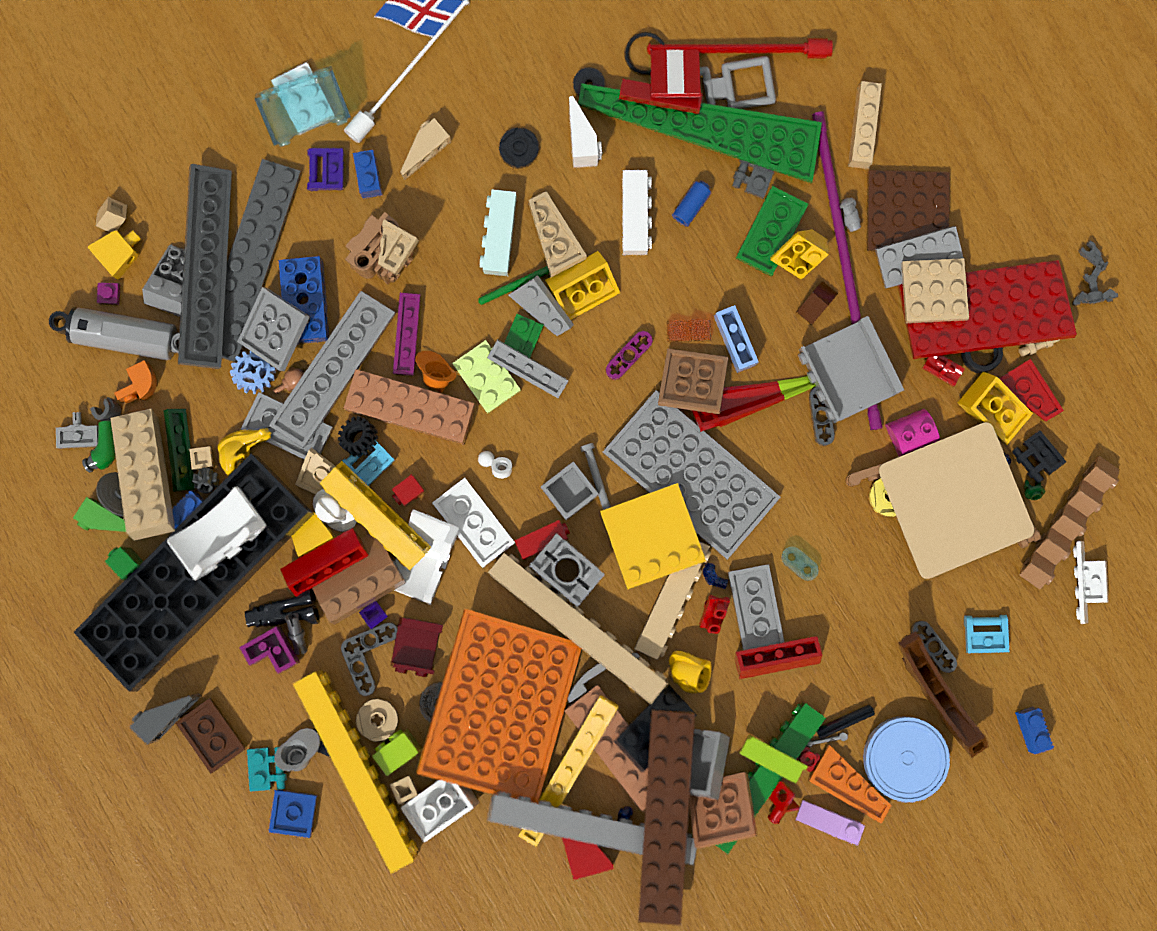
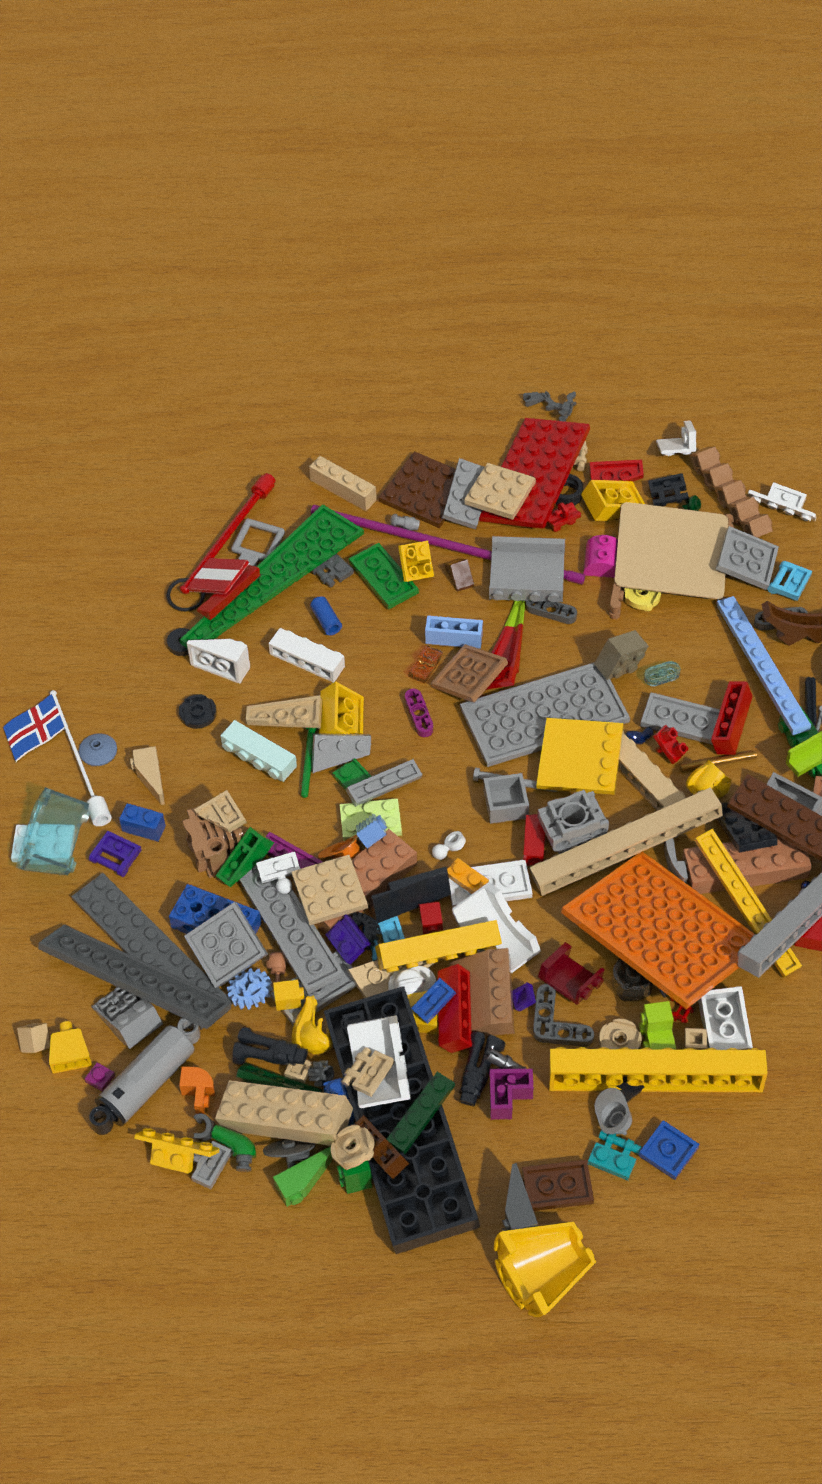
camera: 55 degrees left, 30 degrees down
(71, 399) = (174, 1152): none -> yellow bracket
(126, 766) = (541, 1264): none -> yellow cone
(131, 565) = (360, 1153): none -> tan plate
(143, 574) = (384, 1152): none -> reddish brown slope
(196, 593) = (421, 1112): none -> dark green plate
(202, 434) = (279, 1050): none -> black piece
(204, 533) = (371, 1075): none -> tan plate
(258, 411) = (288, 995): none -> yellow brick
(313, 543) = (433, 1000): none -> blue plate
(341, 431) = (348, 939): none -> dark purple plate
(376, 290) = (244, 857): none -> green slope
(376, 388) = (329, 890): none -> tan plate
(379, 328) = (279, 868): none -> white plate
(419, 459) = (408, 893): none -> black slope
(428, 91) = (98, 755): none -> sand blue dish
(460, 389) = (371, 830): none -> medium blue brick
(464, 500) = (466, 876): none -> light orange plate
(726, 665) = (719, 760): none -> pearl gold bar
(789, 518) = (621, 655): none -> dark tan brick
(859, 658) = (763, 666): none -> light blue plate
(988, 580) = (747, 558): none -> light grey plate
(1106, 437) = (679, 445): none -> white bracket

